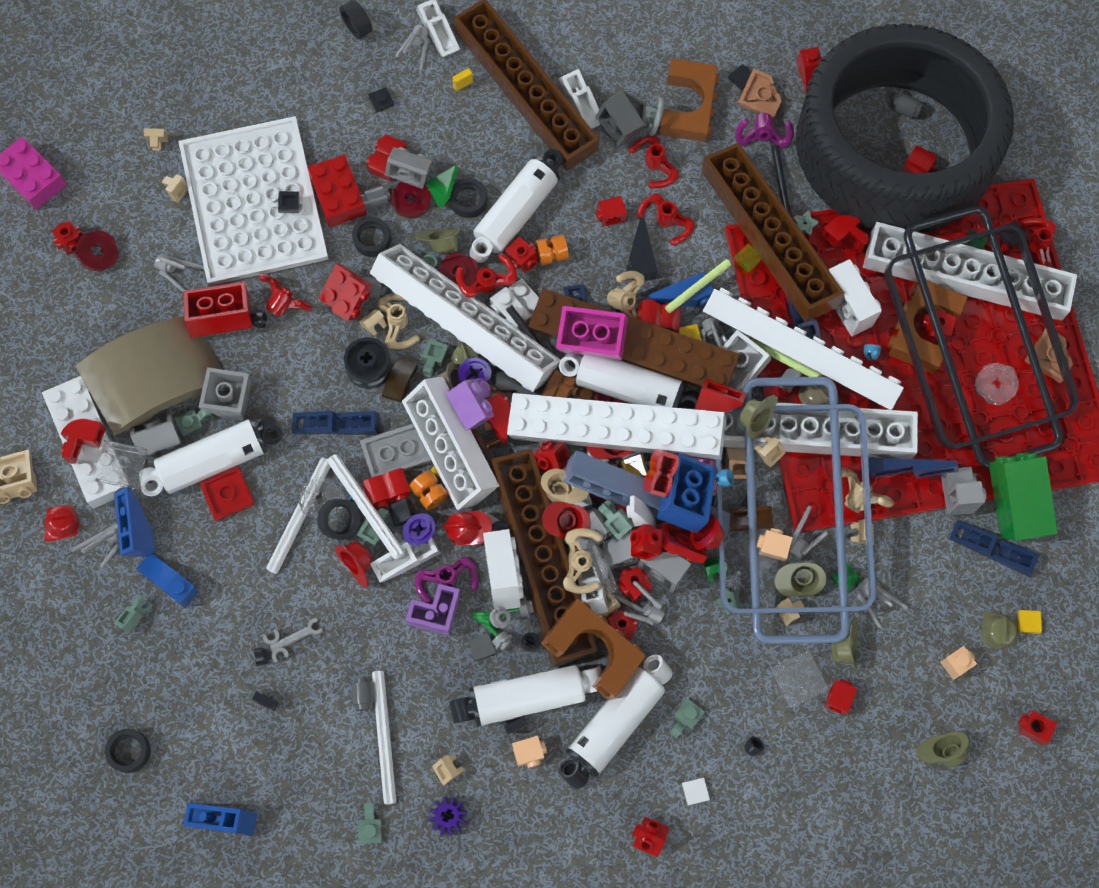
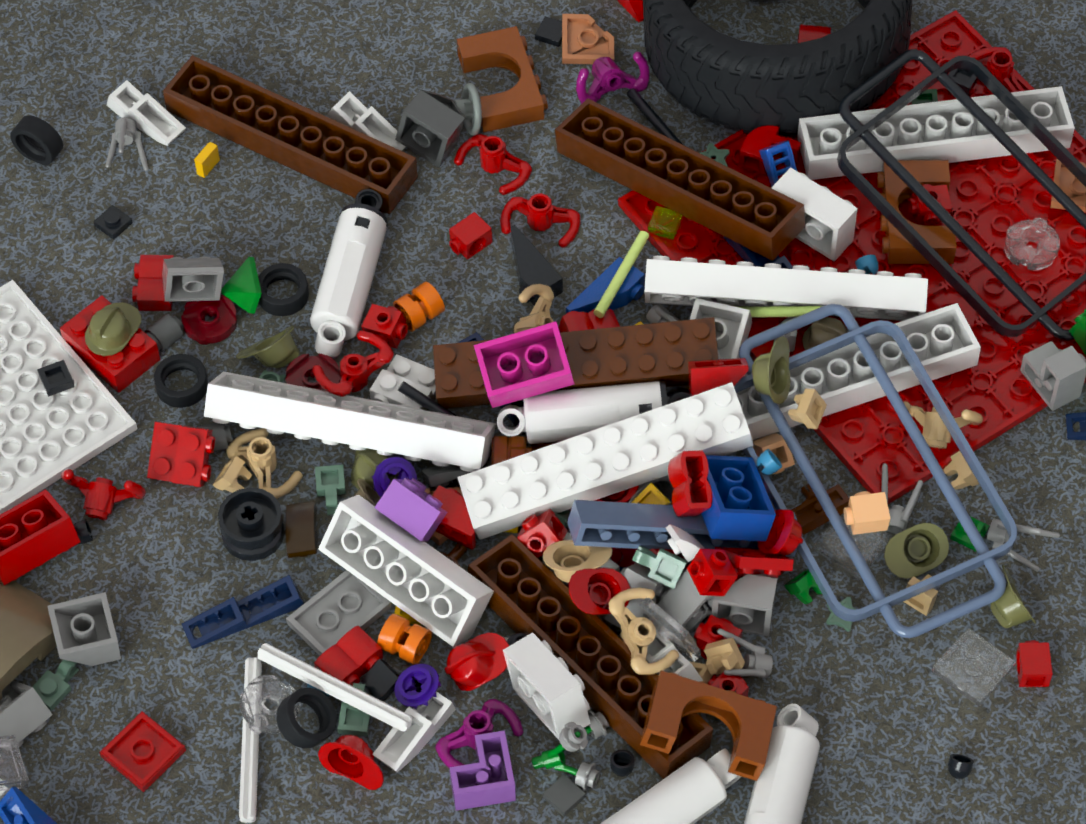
camera: 20 degrees left, 15 degrees down
(210, 456) = (102, 711): white piece -> none
(339, 182) = (112, 328): none -> olive piece
(629, 600) = (723, 656): none -> tan tile
(687, 717) = (861, 767): sand green plate -> none
(846, 238) = (769, 163): none -> blue slope
(922, 468) = (993, 364): dark blue slope -> none

